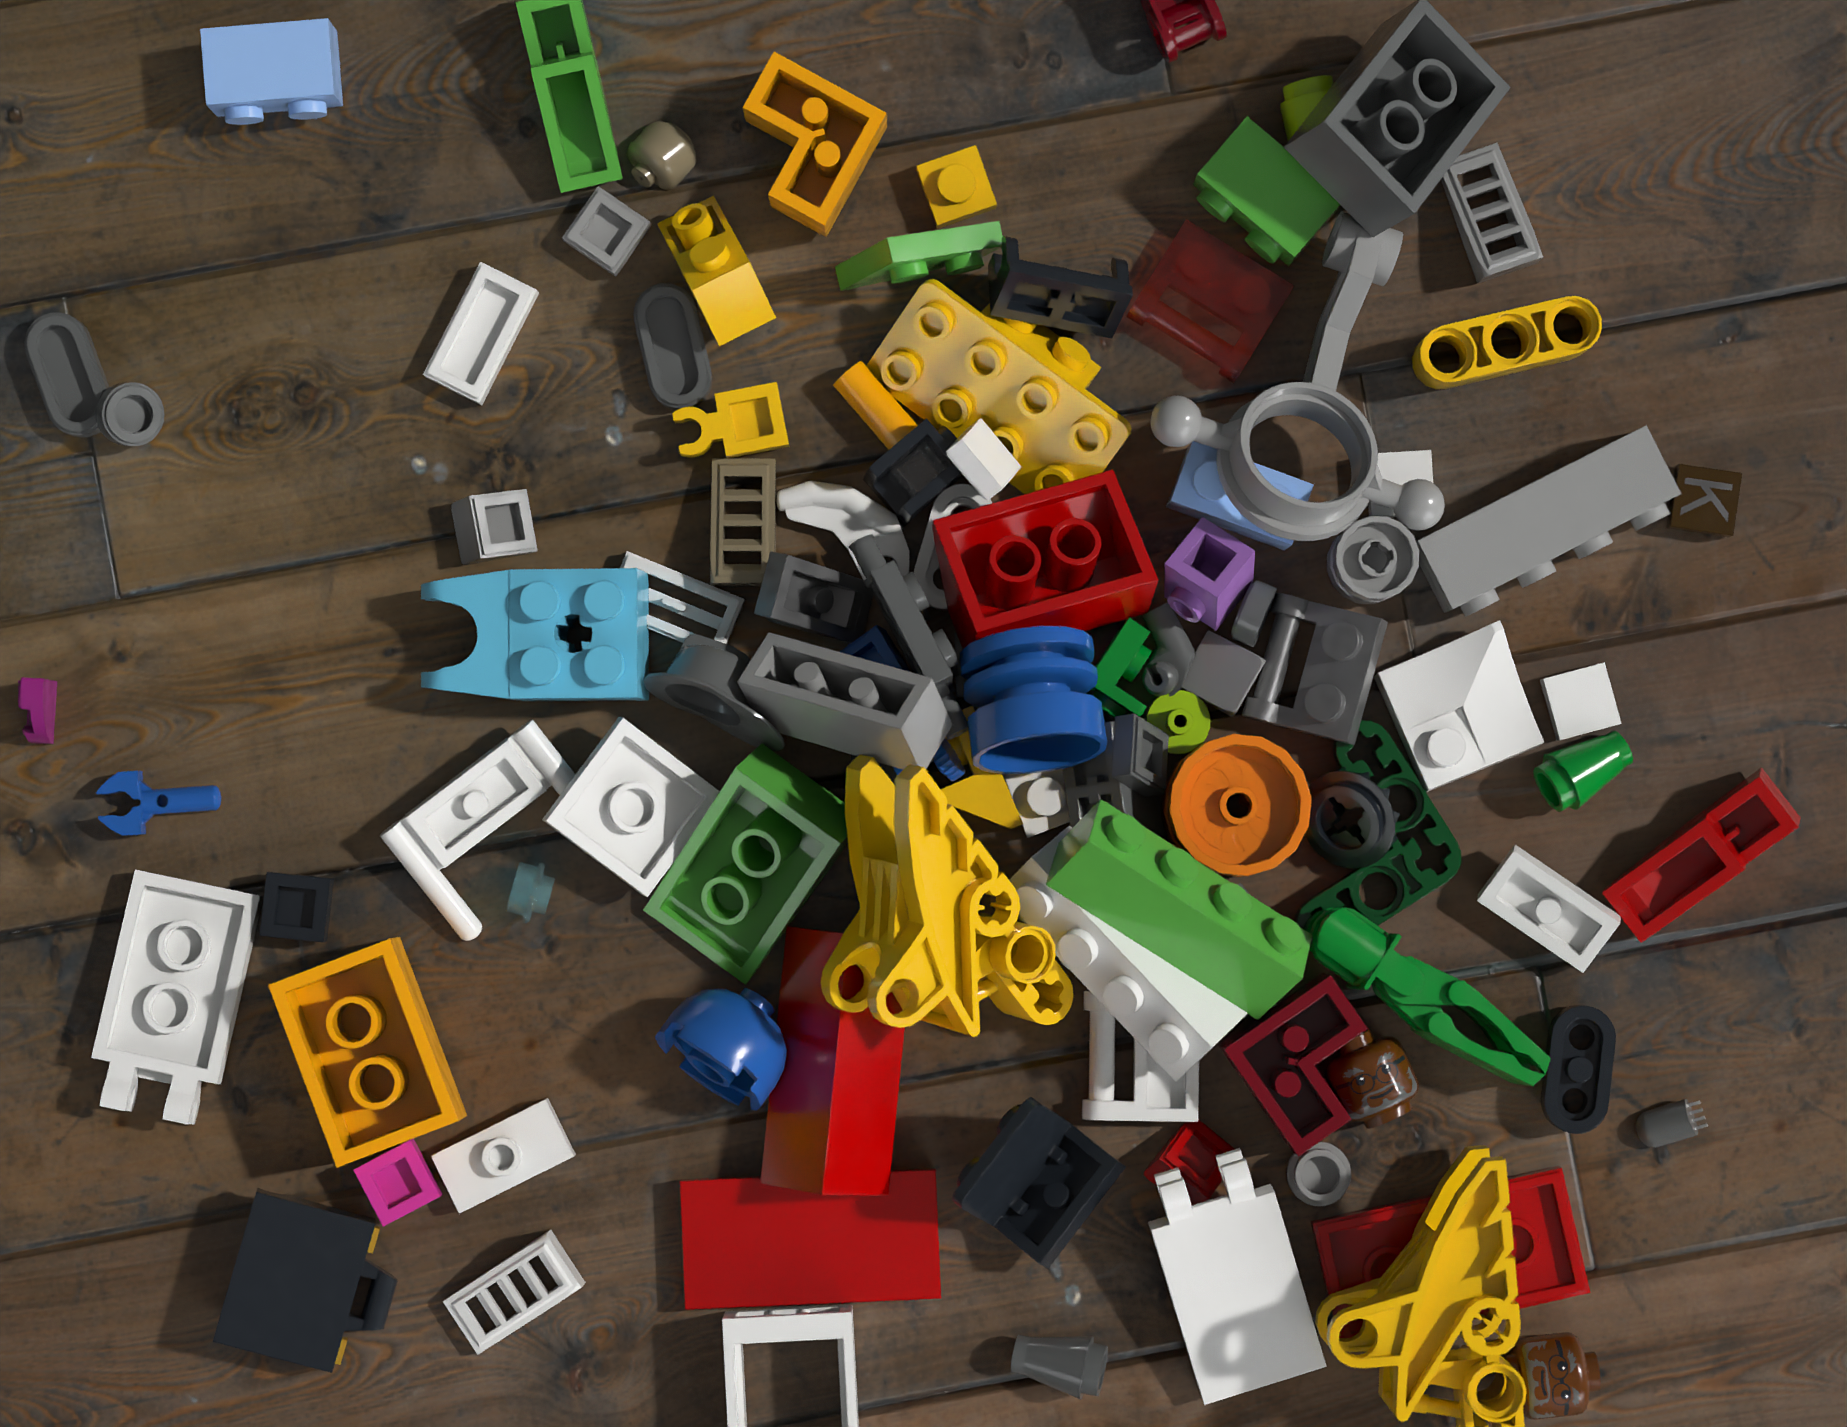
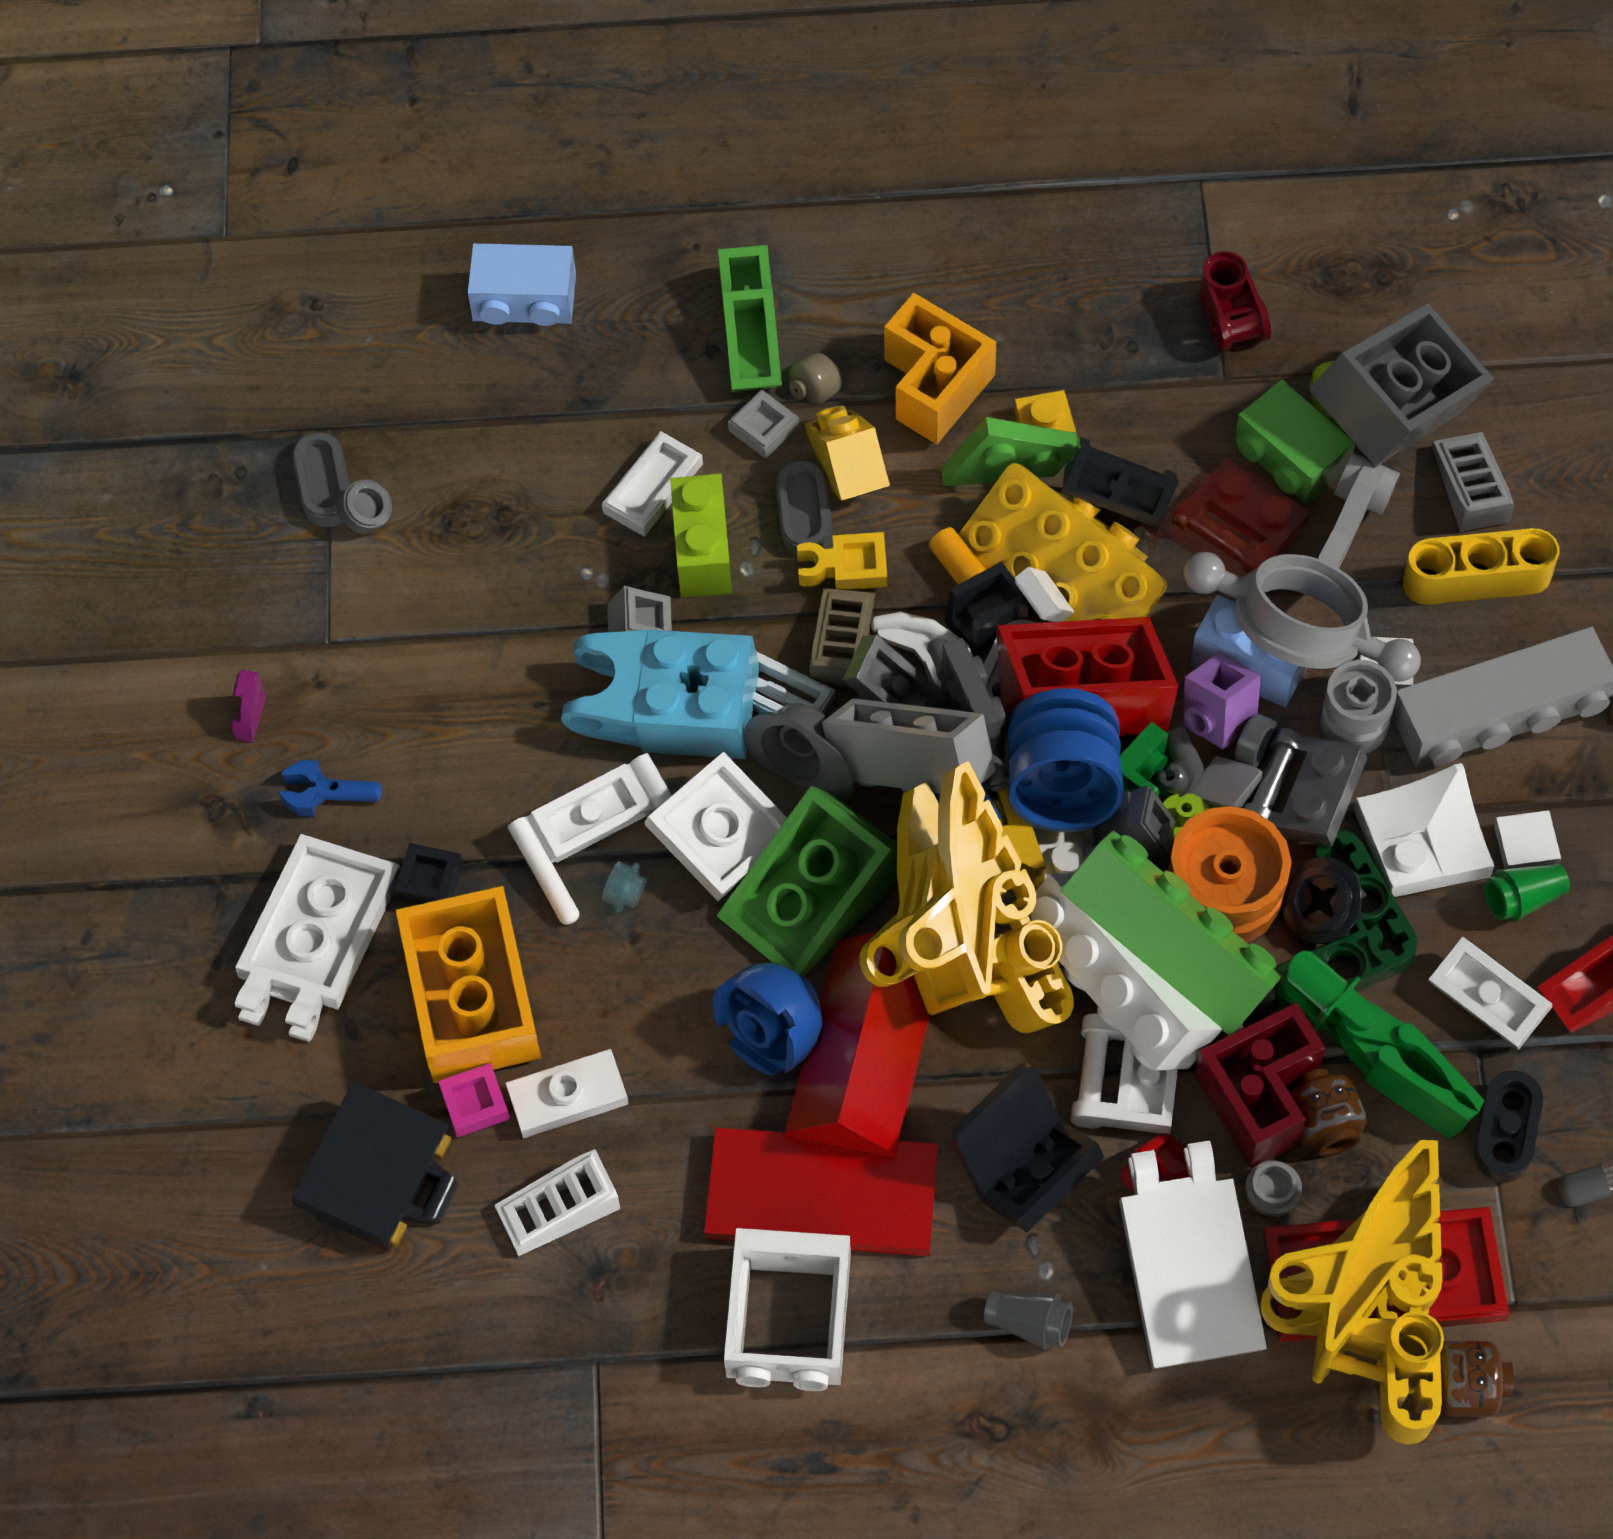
camera: 15 degrees right, 25 degrees down
(552, 412) = (701, 535): none -> lime brick

